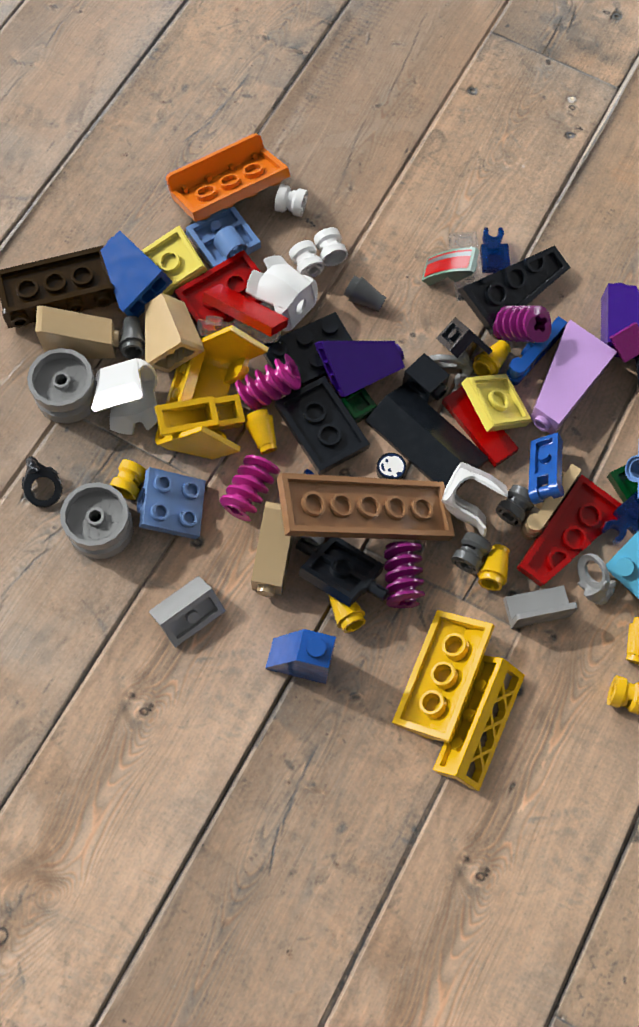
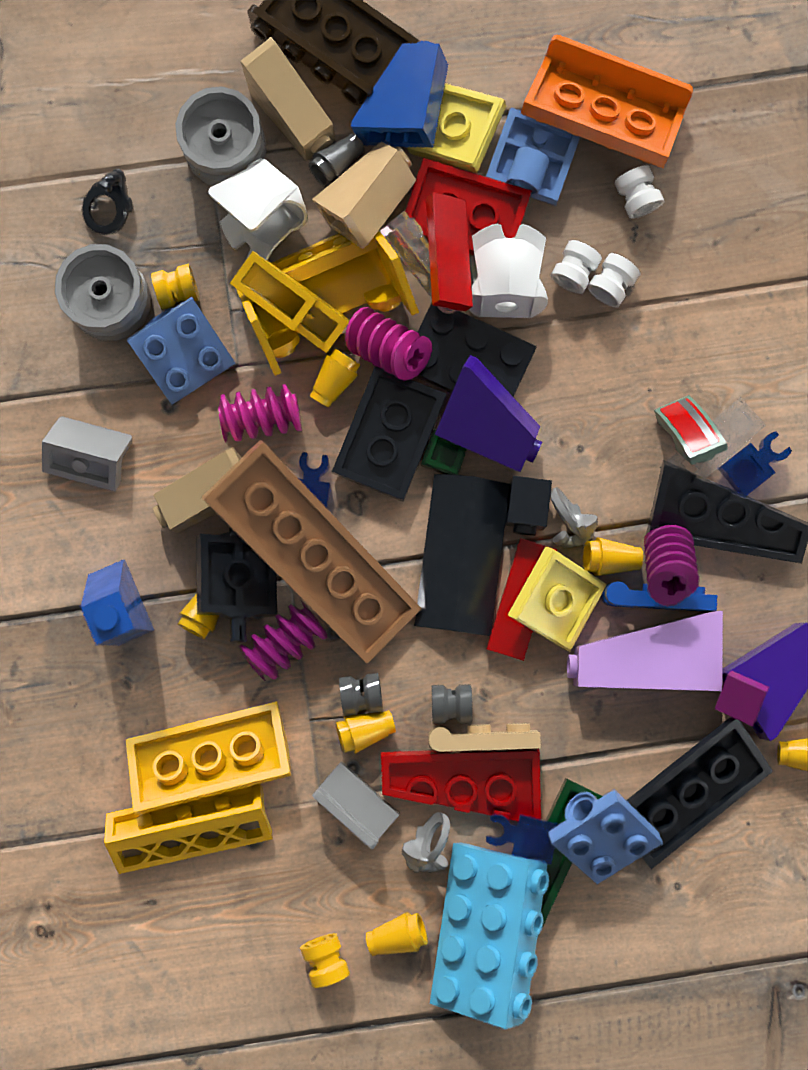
camera: 60 degrees right, 15 degrees up
(364, 294) = (583, 360): dark grey cone -> none
(391, 466) = (398, 541): tile -> none
(458, 337) = (603, 505): black panel -> none
(462, 509) = (436, 661): white piece -> none
(545, 468) = (512, 708): blue plate -> none

